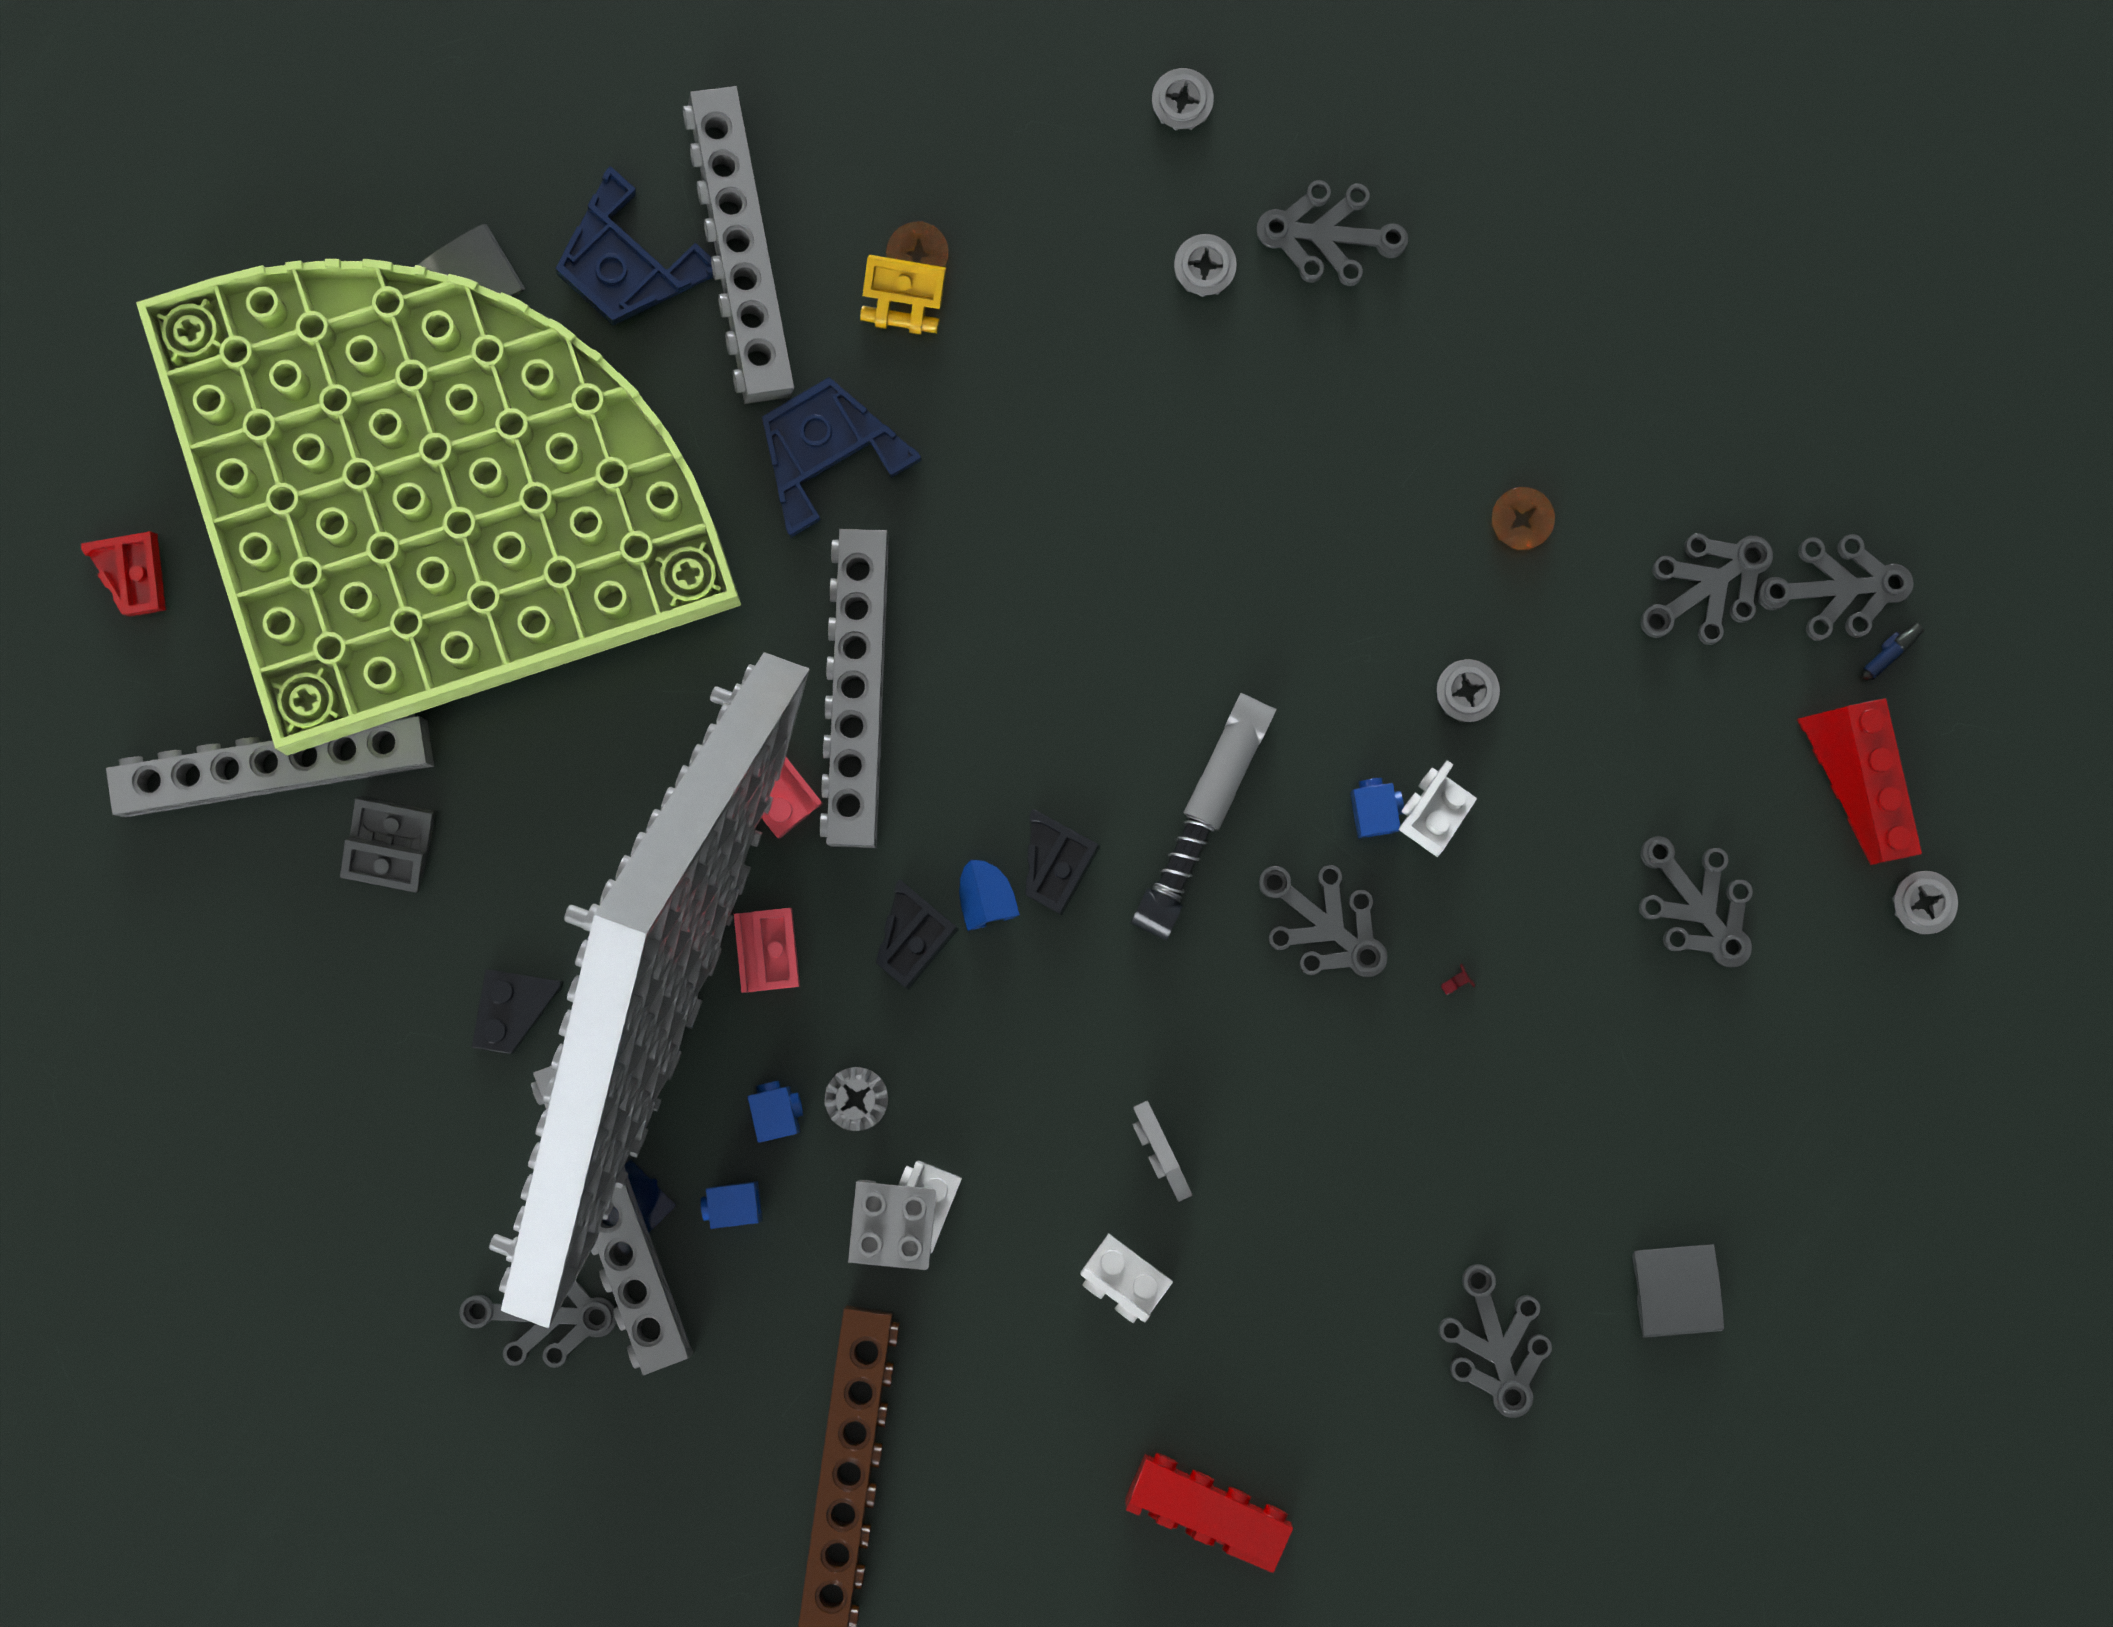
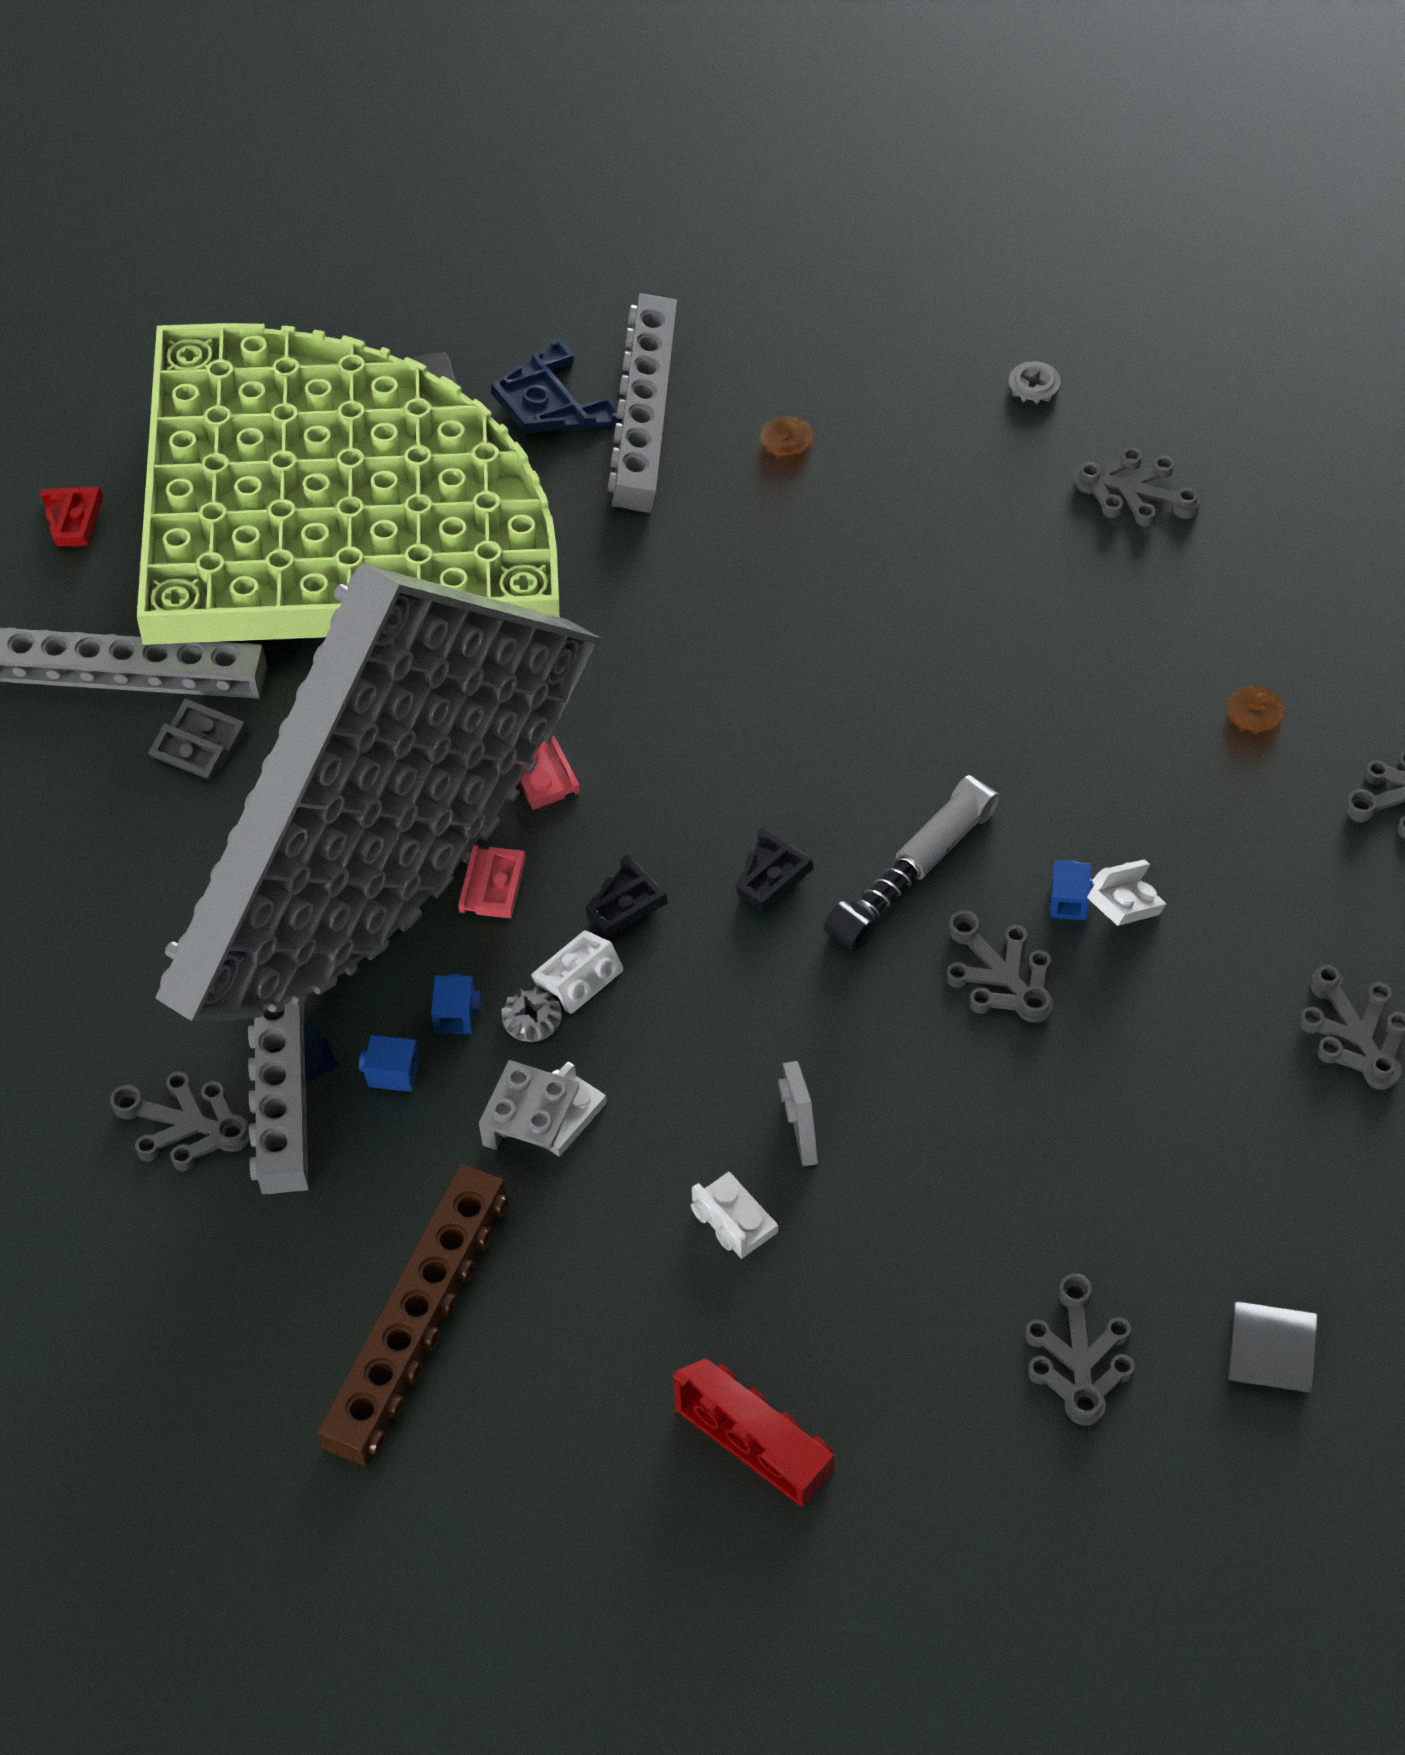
camera: 10 degrees right, 30 degrees down
(817, 433) = (665, 534): dark blue wing -> none
(872, 549) = (636, 712): light grey brick -> none
(889, 1037) = (579, 970): none -> white bracket
(903, 283) = (768, 445): yellow plate -> none
(985, 895) = (699, 882): blue brick -> none
(1220, 255) = (1015, 480): light grey gear -> none
(1457, 981) = (1117, 1045): dark red piece -> none
(1475, 674) = (1189, 816): light grey gear -> none

